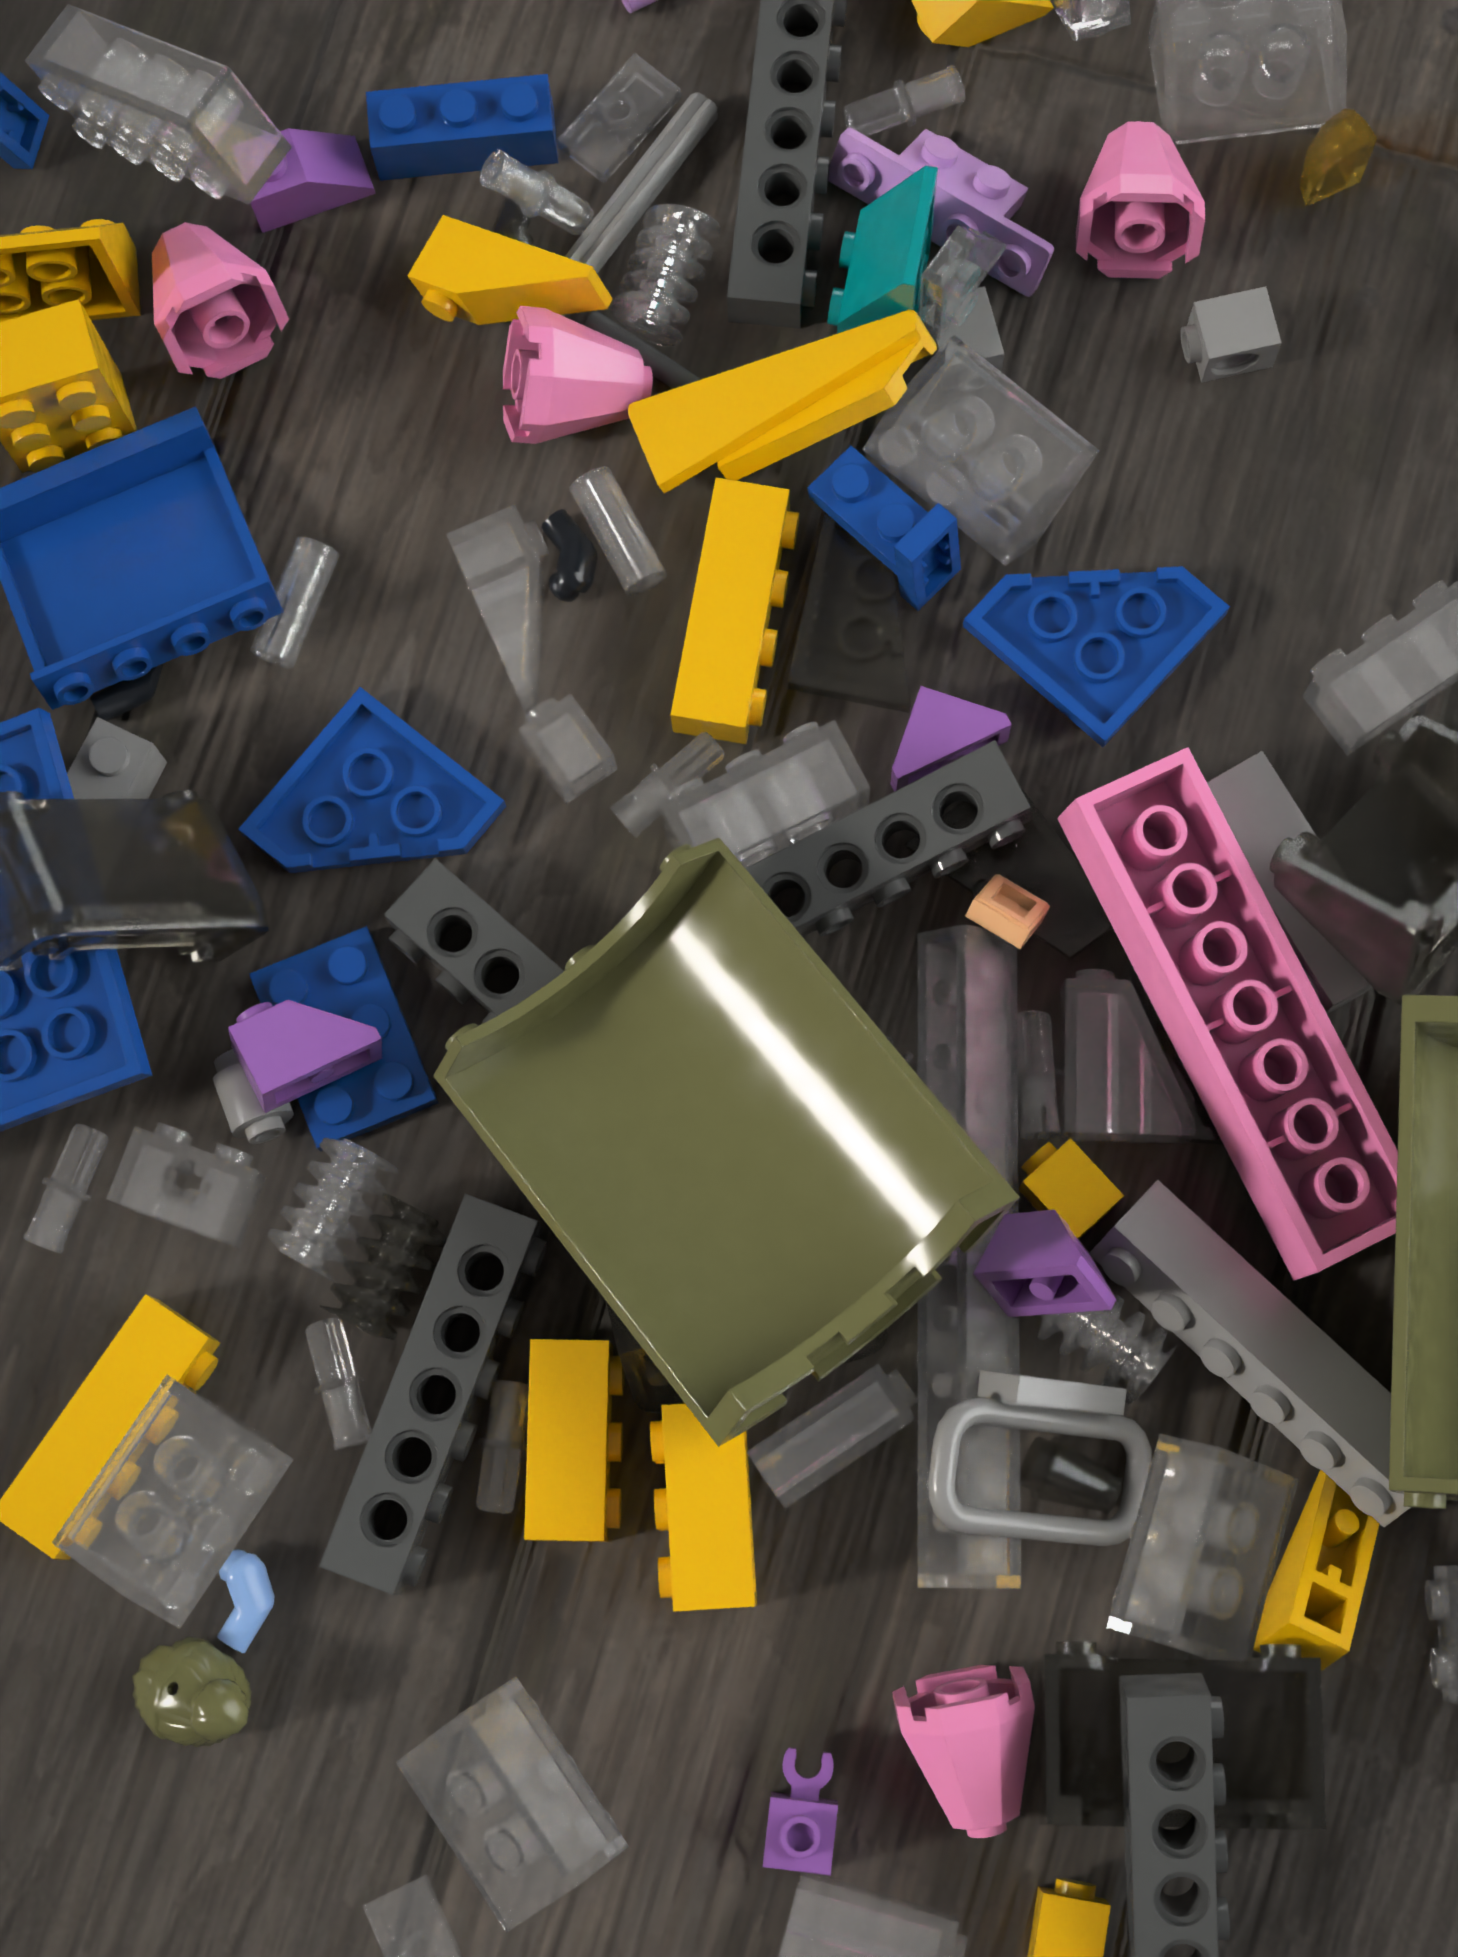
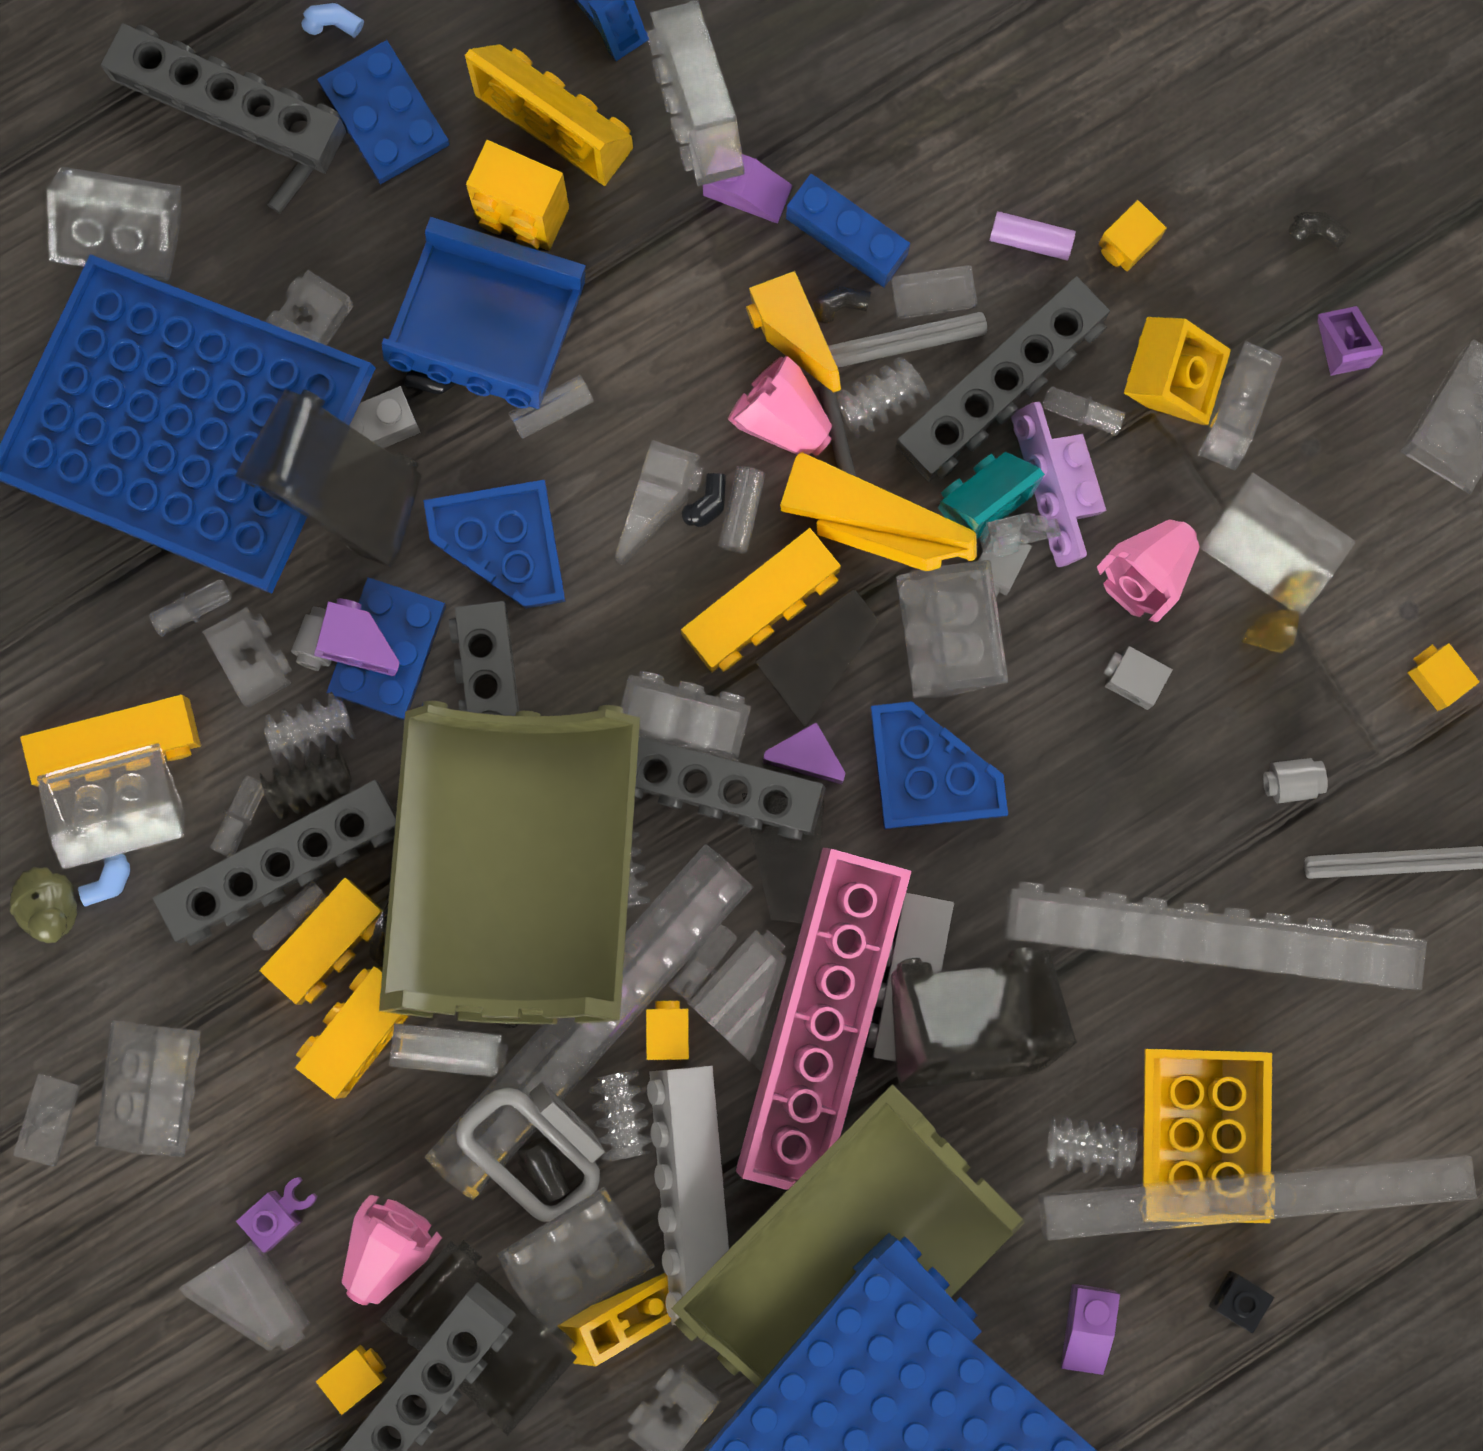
camera: 30 degrees right, 5 degrees up
(212, 302) = (640, 214): bright pink cone -> none
(536, 193) = (851, 299): clear axle -> none
(567, 747) = (619, 598): clear brick -> none
(643, 803) = (652, 660): clear axle -> none
(891, 525) = (875, 625): blue bracket -> none
(1008, 910) = (757, 872): light nougat tile -> none
(1041, 1268) = (615, 1059): medium lavender slope -> none

